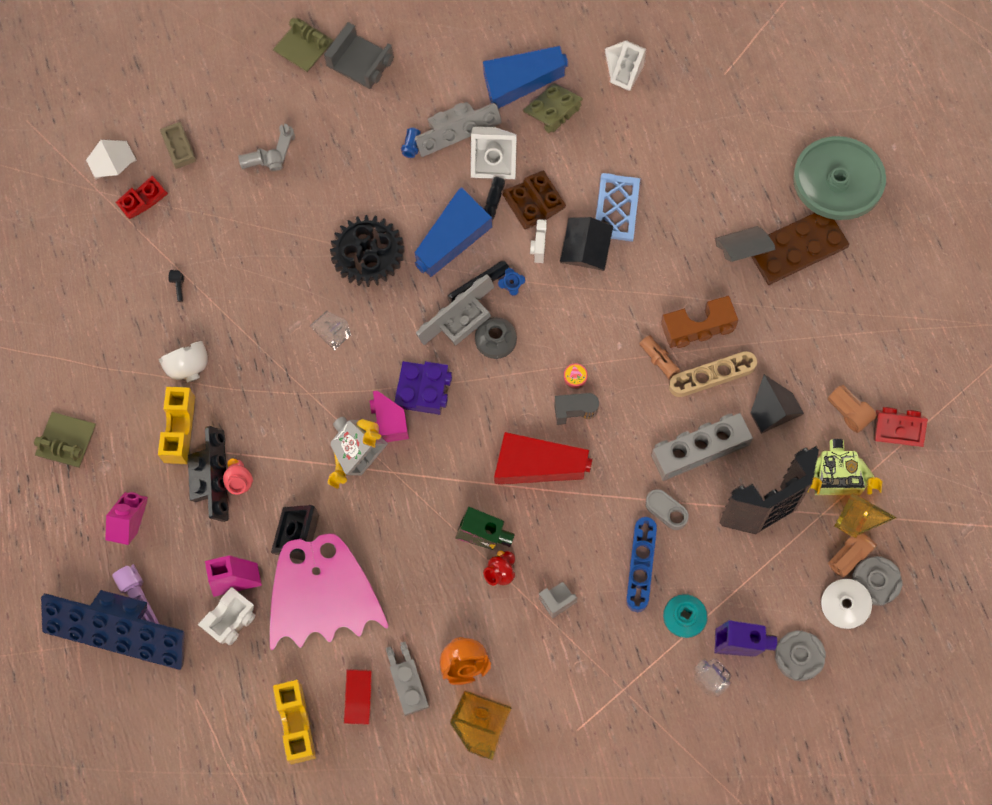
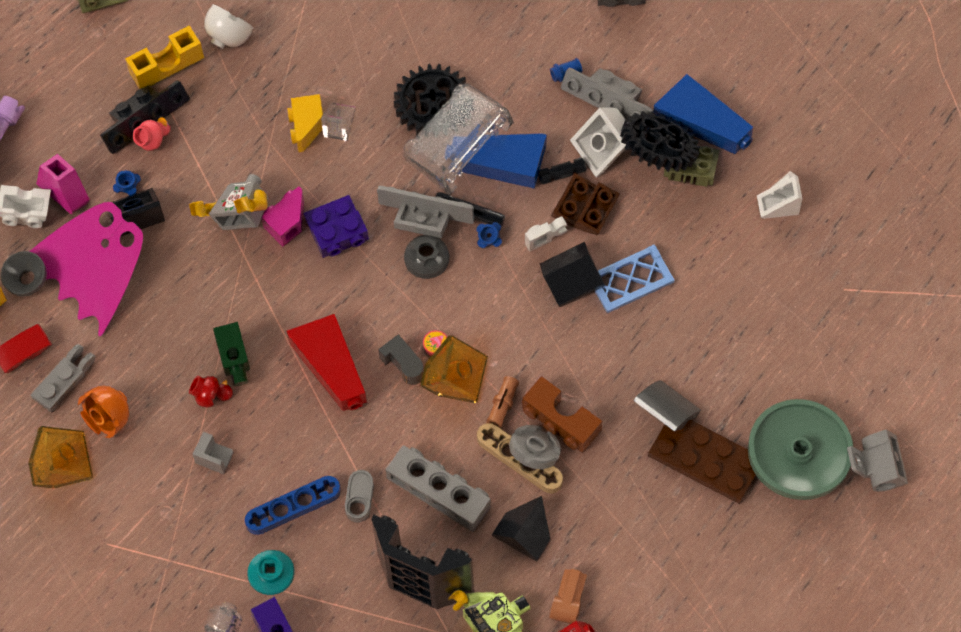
camera: 55 degrees right, 5 degrees down
(125, 518) = (59, 74): dark pink slope -> none
(264, 517) = (123, 177): none -> blue plate
(278, 653) = (16, 267): none -> dark grey piece
(312, 351) = (307, 117): none -> yellow slope
(416, 250) = (456, 135): none -> clear windscreen
(530, 115) = (659, 143): none -> black gear
(611, 376) = (455, 371): none -> clear yellow slope
(714, 356) = (534, 447): none -> light grey tile
(881, 132) = (879, 461): none -> light grey piece

